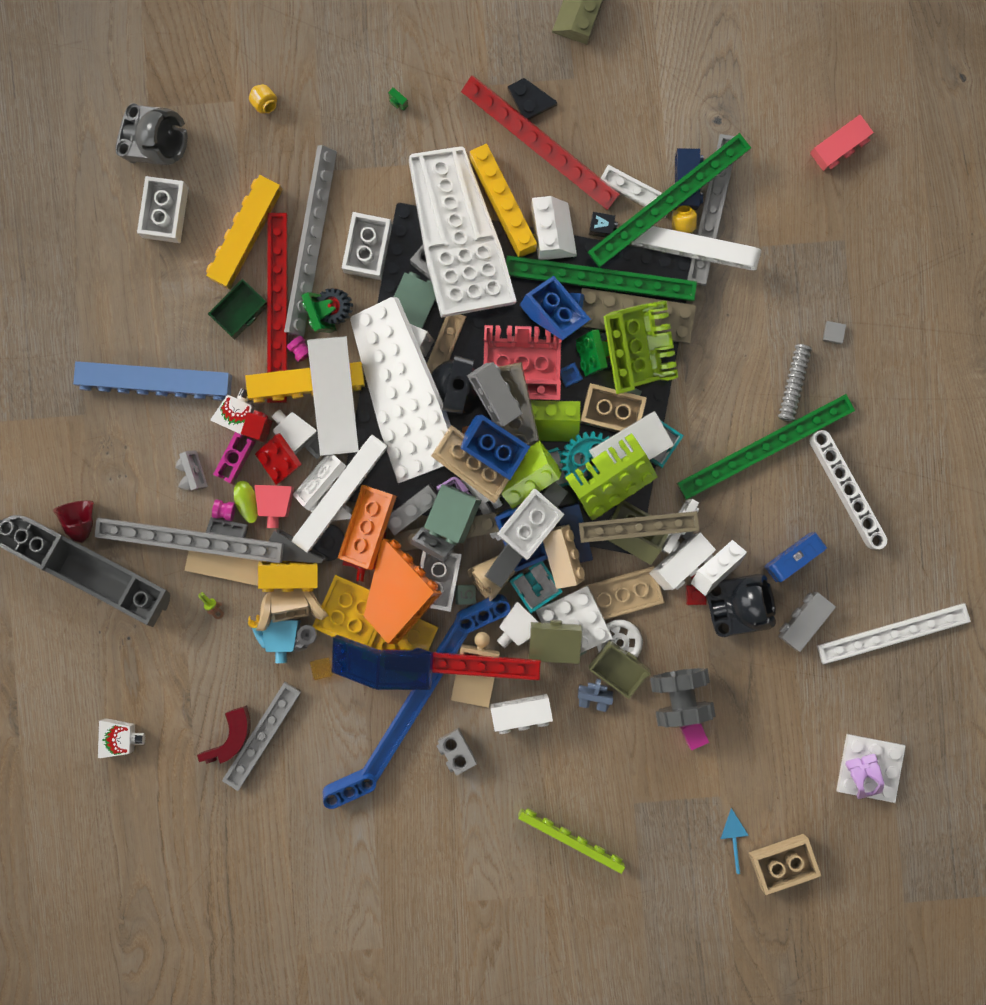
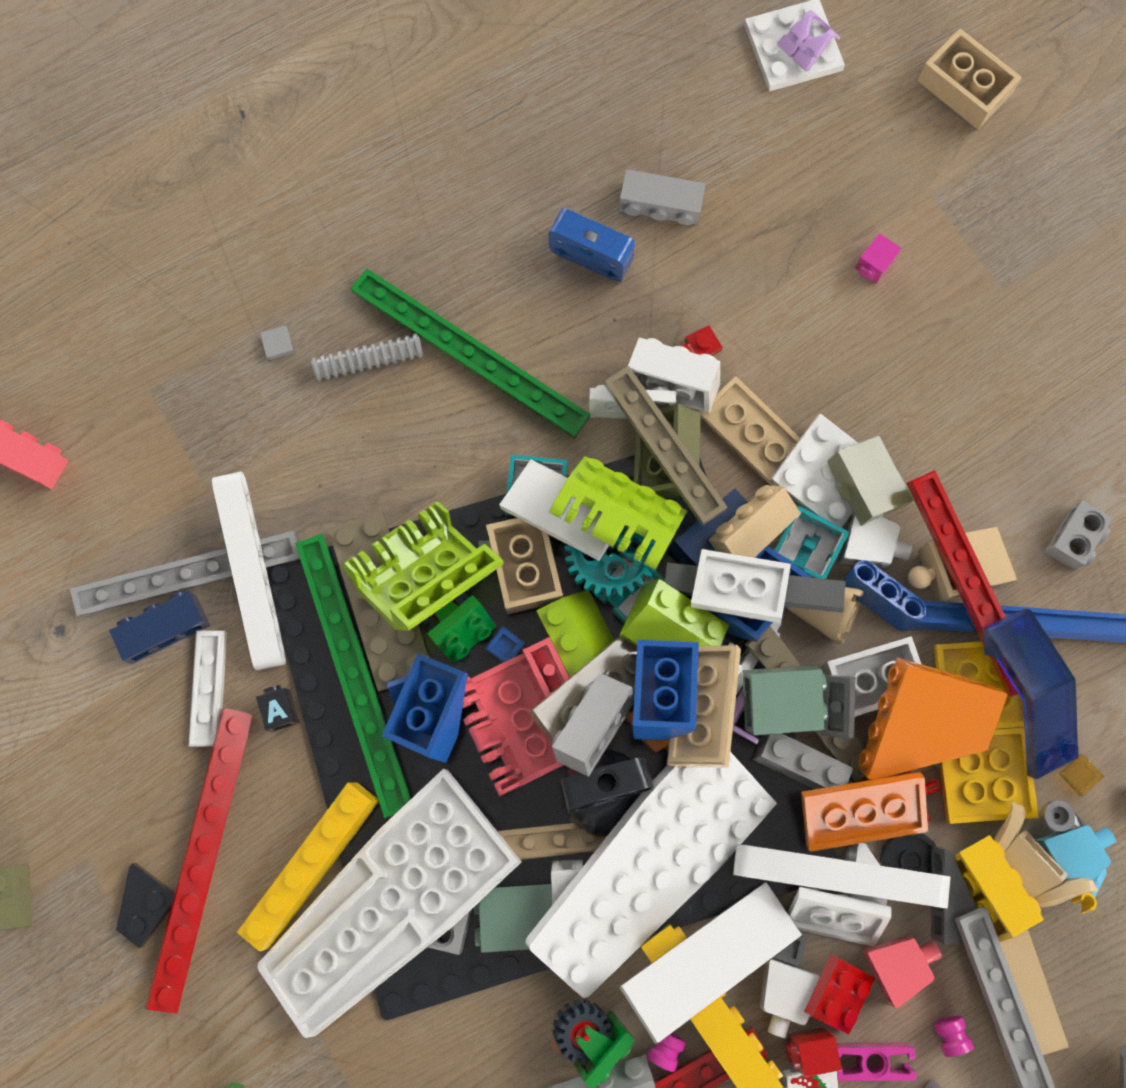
camera: 115 degrees left, 10 degrees down
(211, 605) = (1093, 979): piece -> none
(228, 528) = (976, 1016): dark grey plate -> none
(246, 501) = (922, 1010): lime arm -> none
(367, 246) = (469, 1031): white brick -> none
(465, 594) = (871, 632): sand green tile -> none
(521, 713) = (983, 477): white brick -> none
(552, 228) = (315, 775): white slope -> none
(579, 843) = (1098, 337): lime plate -> none
(596, 693) = (900, 400): sand blue hips -> none
(619, 669) = (853, 386): olive container -> none
(633, 633) = (795, 395): white plate -> none
(669, 200) = (202, 633): green plate -> none
(683, 708) = (857, 278): dark grey piece -> none
(684, 219) = (218, 602): yellow head -> none
(718, 567) = (661, 325): white brick -> none
(734, 829) = (962, 161): dark azure piece -> none
(743, 605) = (688, 278): black piece -> none
(856, 494) = (472, 216): white beam -> none
(893, 633) = (620, 96): white tile -> none

